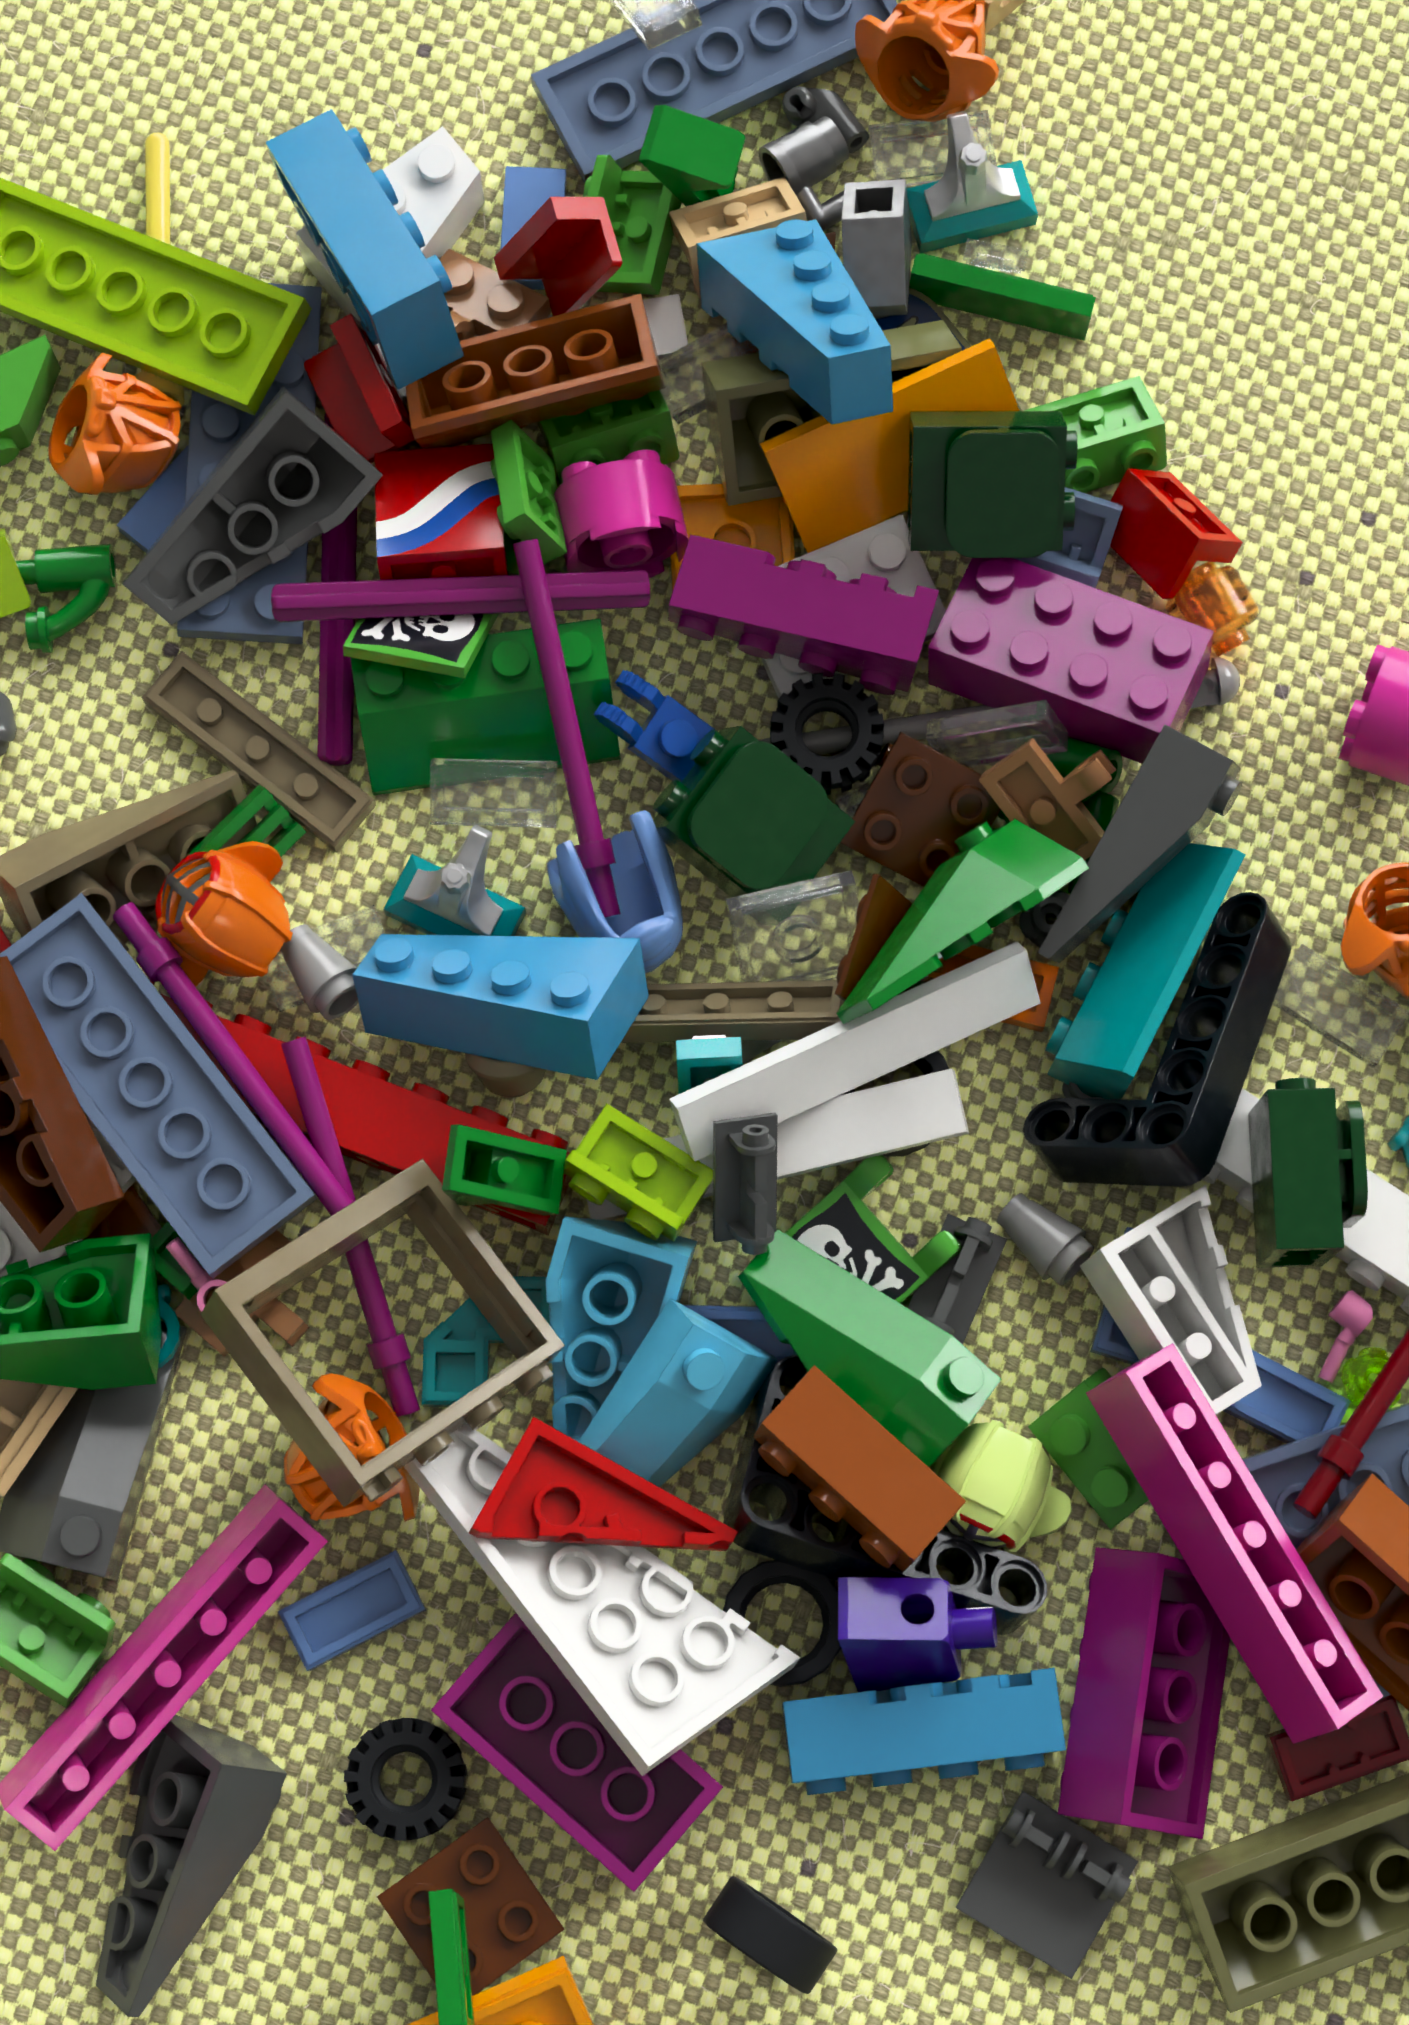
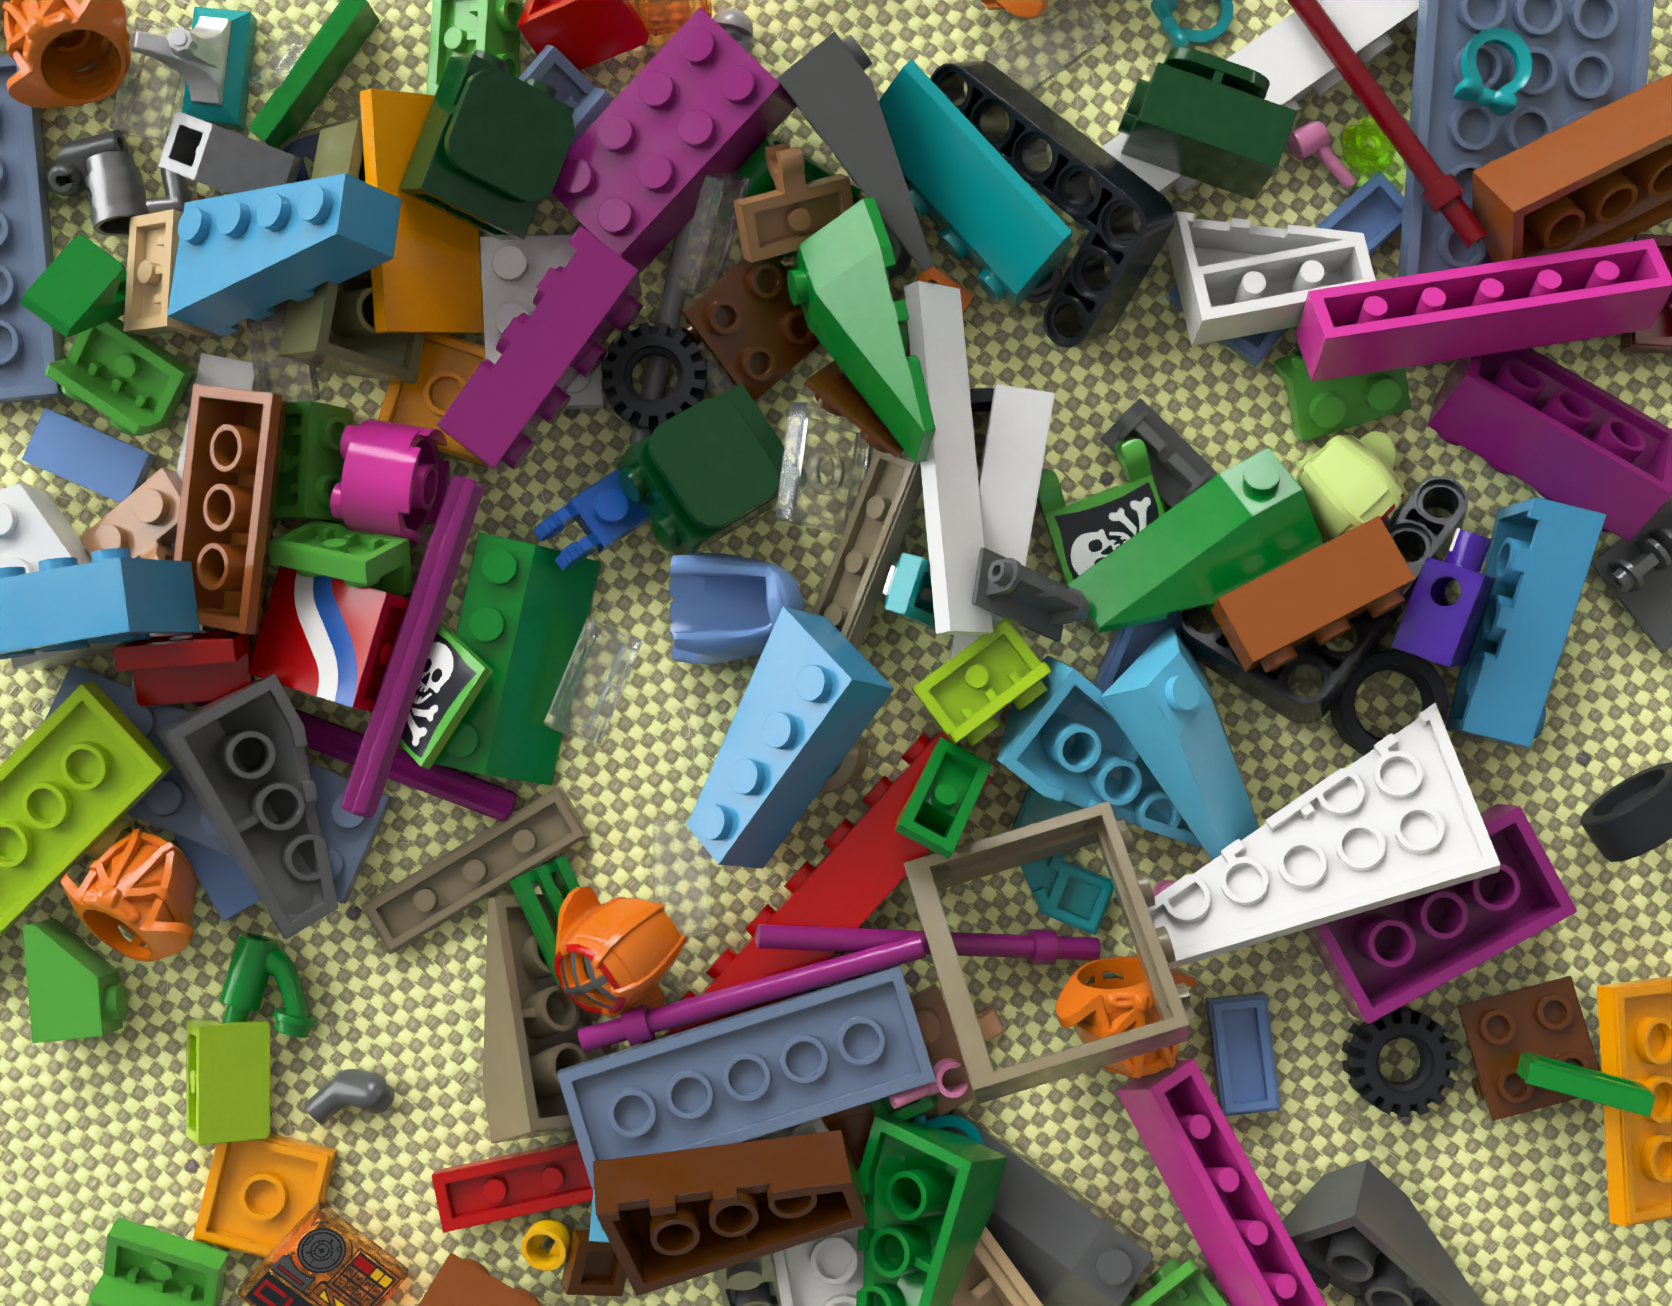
camera: 65 degrees left, 10 degrees up
(320, 973) = (699, 889): light grey cone -> none
(454, 896) = (675, 749): flat silver piece -> none
(567, 247) = (127, 431): red panel -> none
(575, 1495) = (1238, 842): red wing -> none
(593, 850) = (680, 615): magenta bar -> none
(1045, 1239) = (1153, 365): light grey cone -> none

